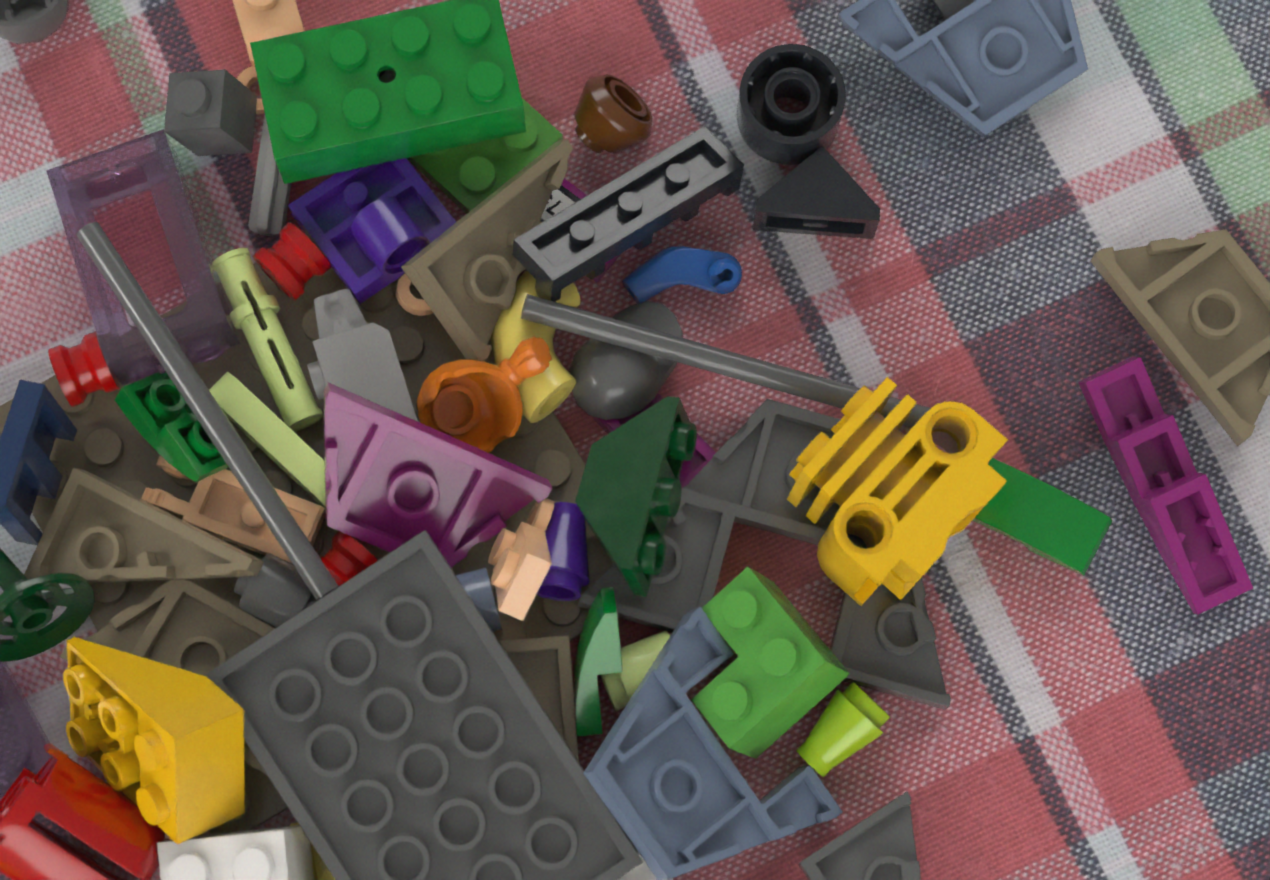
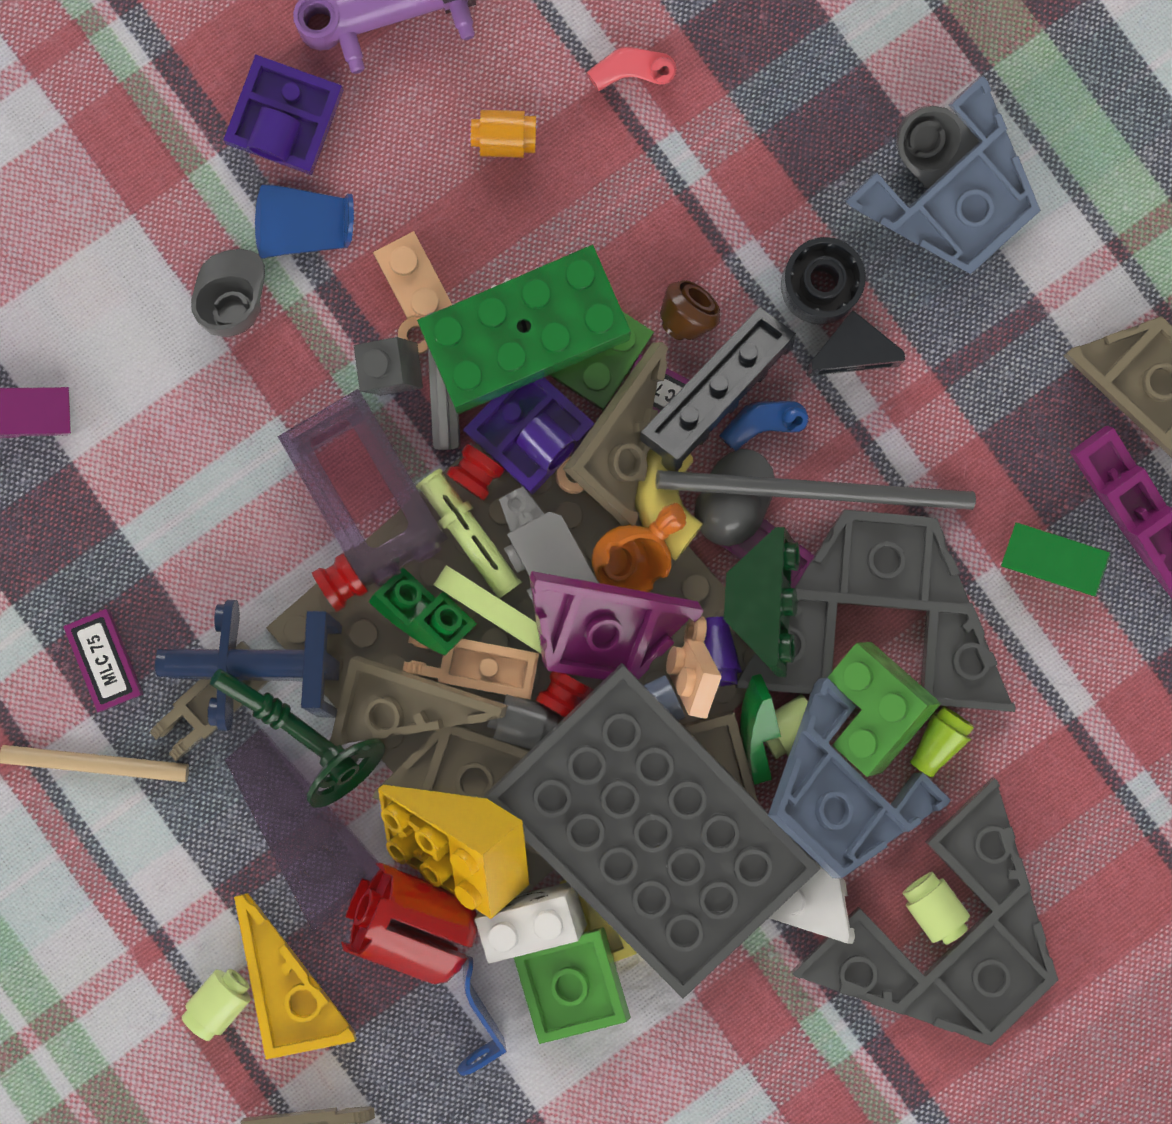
camera: 15 degrees left, 10 degrees up
(207, 411) = (442, 602): dark grey piece -> none
(895, 488) = (955, 568): yellow piece -> none

